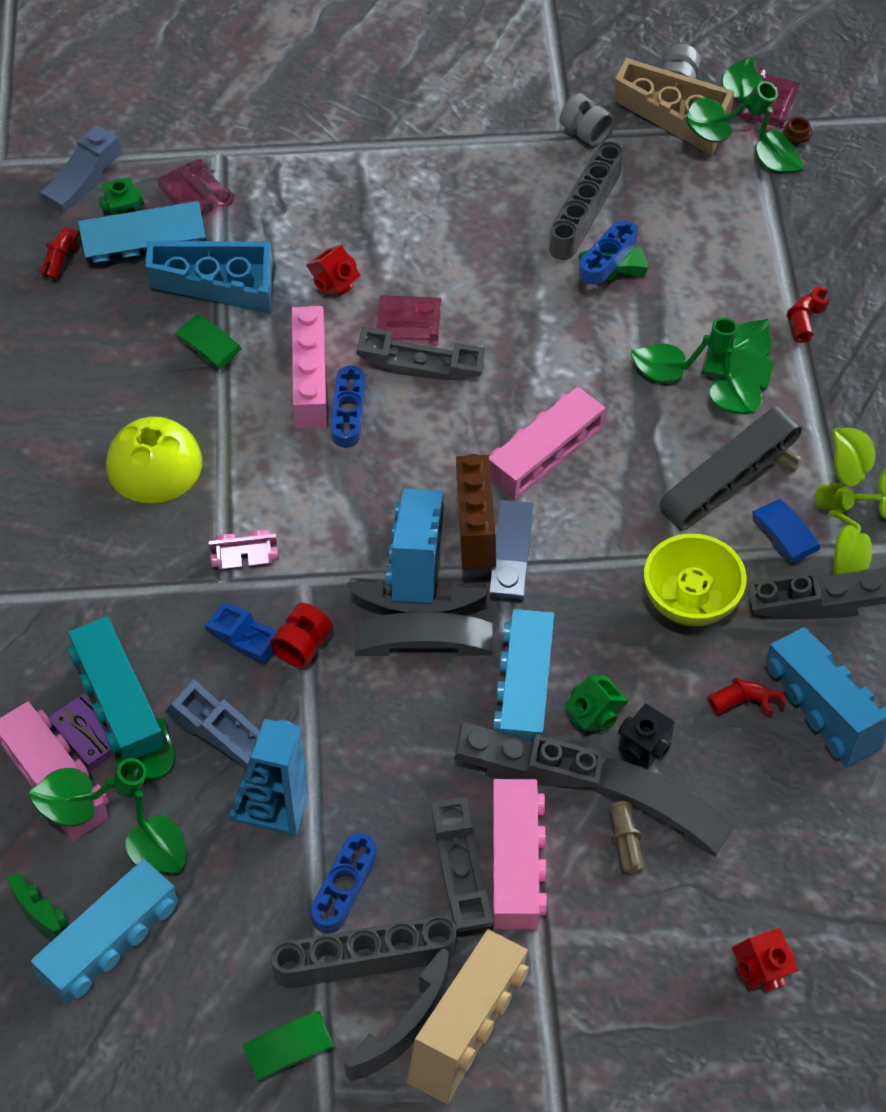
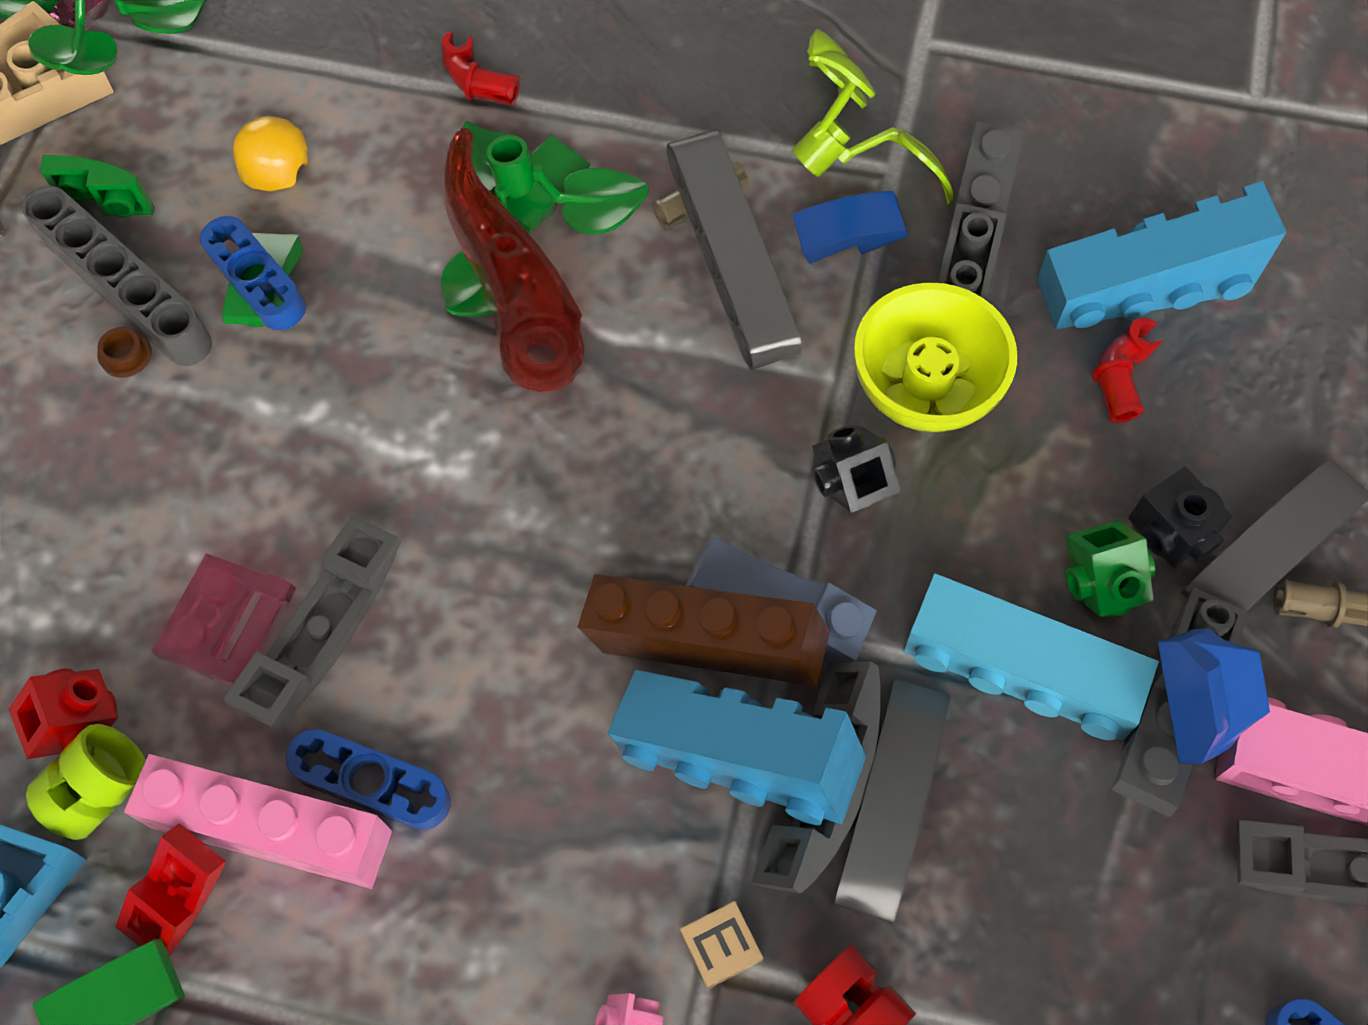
camera: 70 degrees left, 10 degrees up
(263, 345) = (172, 892): none -> red slope
(302, 289) = (85, 782): none -> lime wheel
(316, 578) = (721, 945): none -> tan tile
(526, 748) = (1211, 692): none -> blue slope
(541, 221) = (123, 352): none -> reddish brown plate
(546, 442) = (578, 483): bright pink brick -> none
(609, 564) = (855, 468): none -> black brick
(638, 169) = (88, 179): none -> green slope
(655, 370) = (517, 277): none -> clear red animal
(700, 236) = (269, 153): none -> yellow hair

